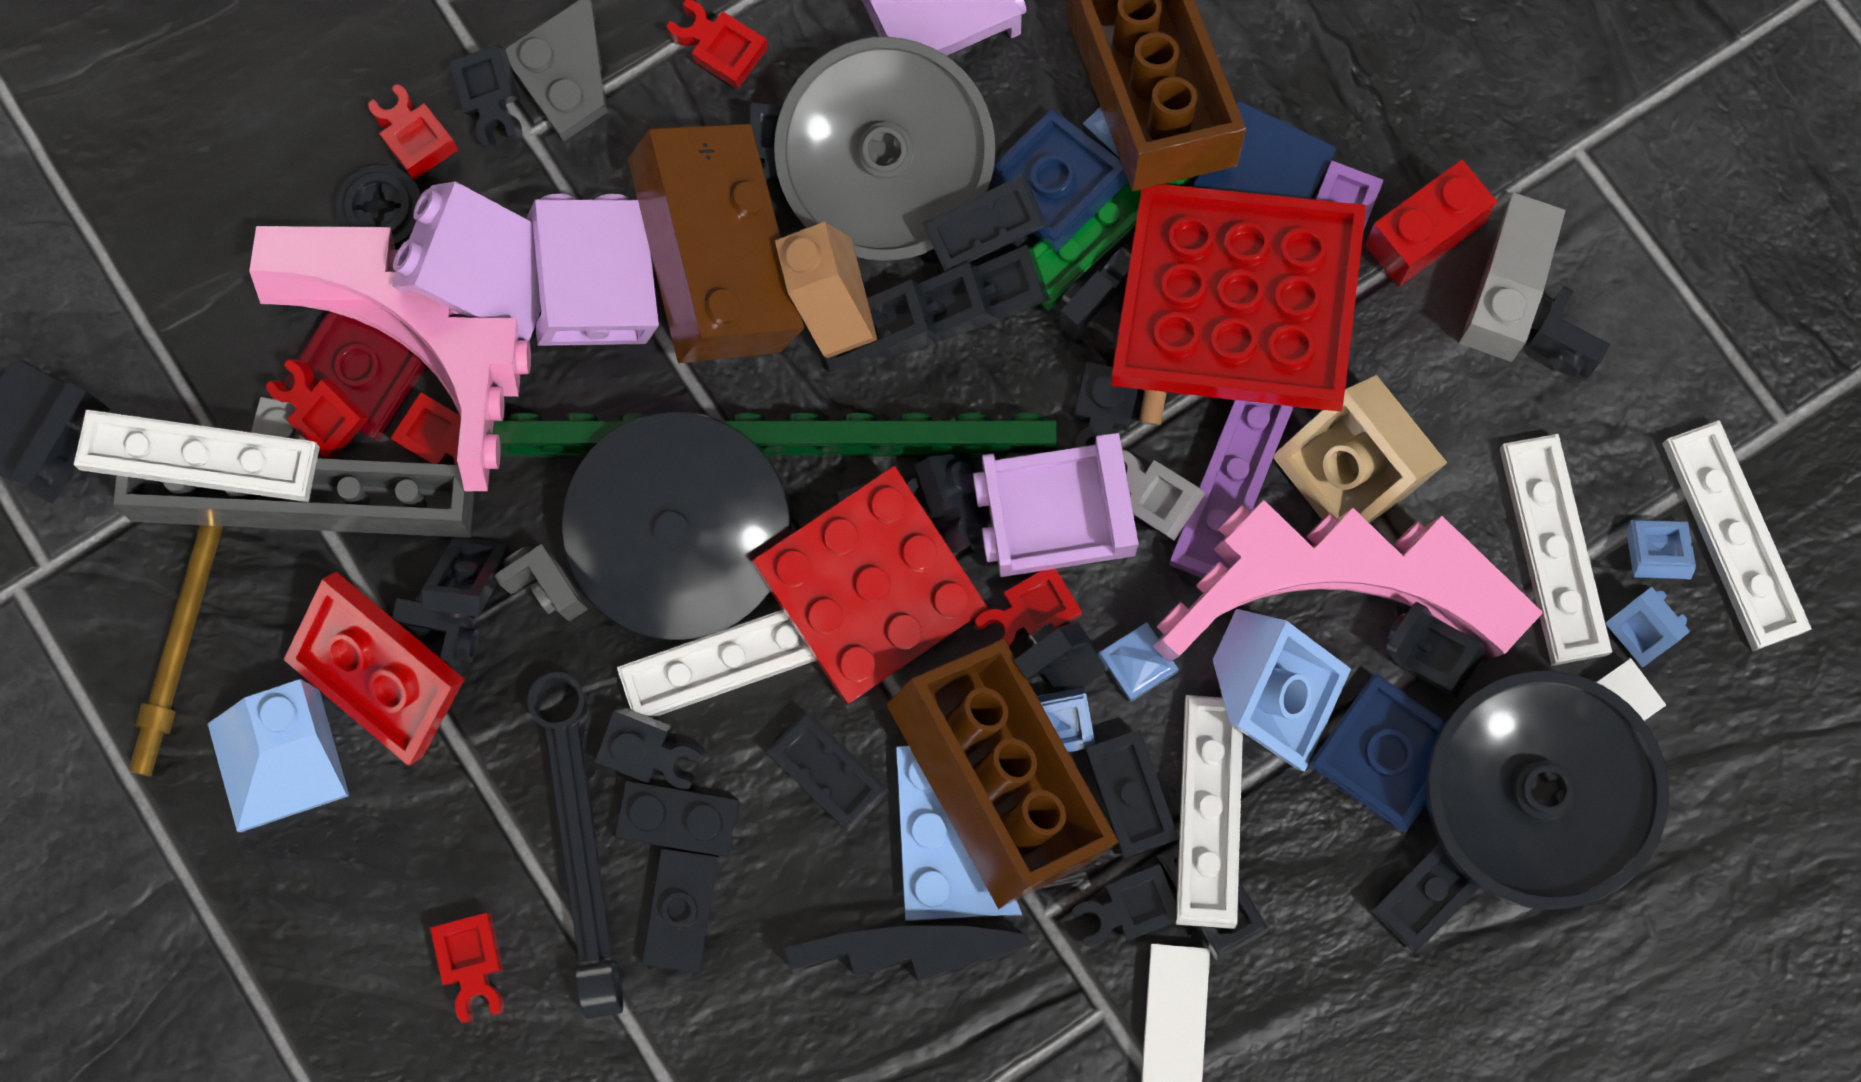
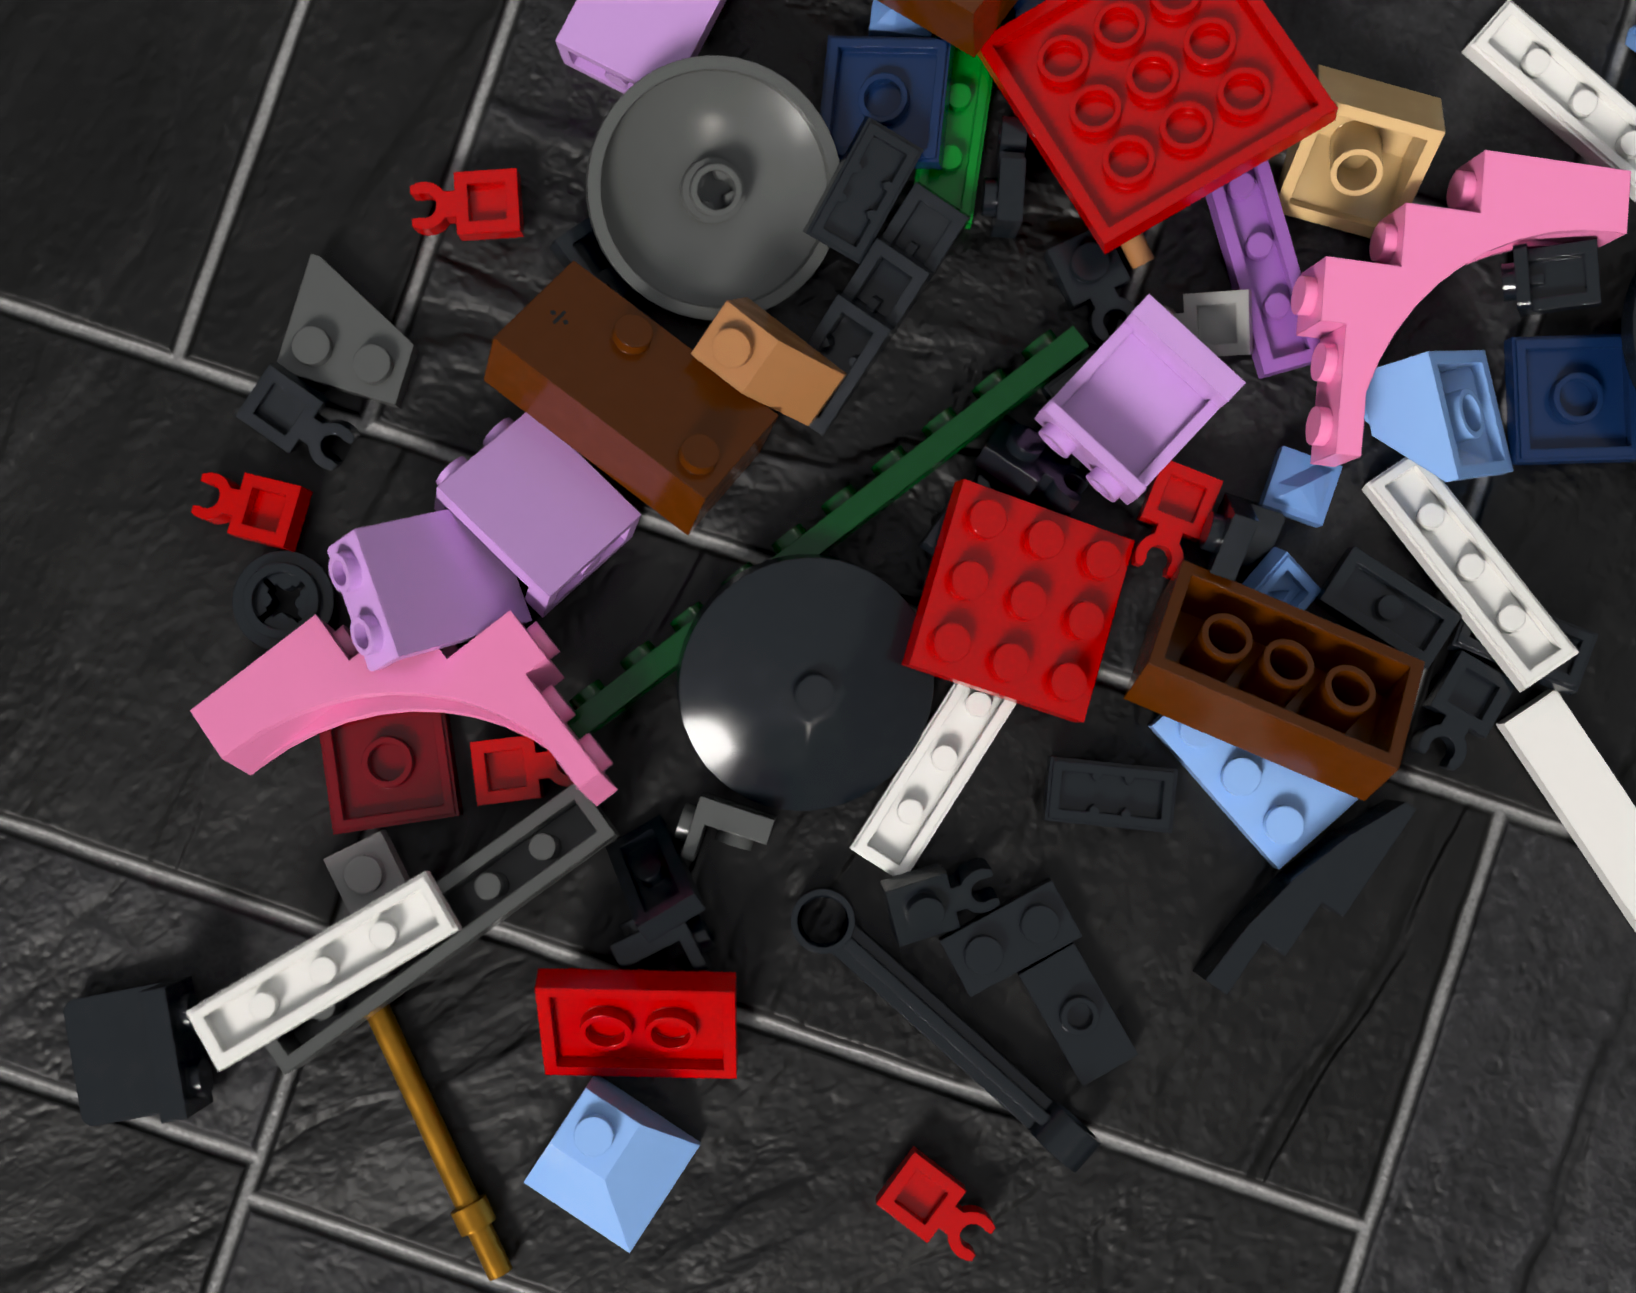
camera: 45 degrees left, 10 degrees up
(322, 410) = (398, 831): red plate -> none

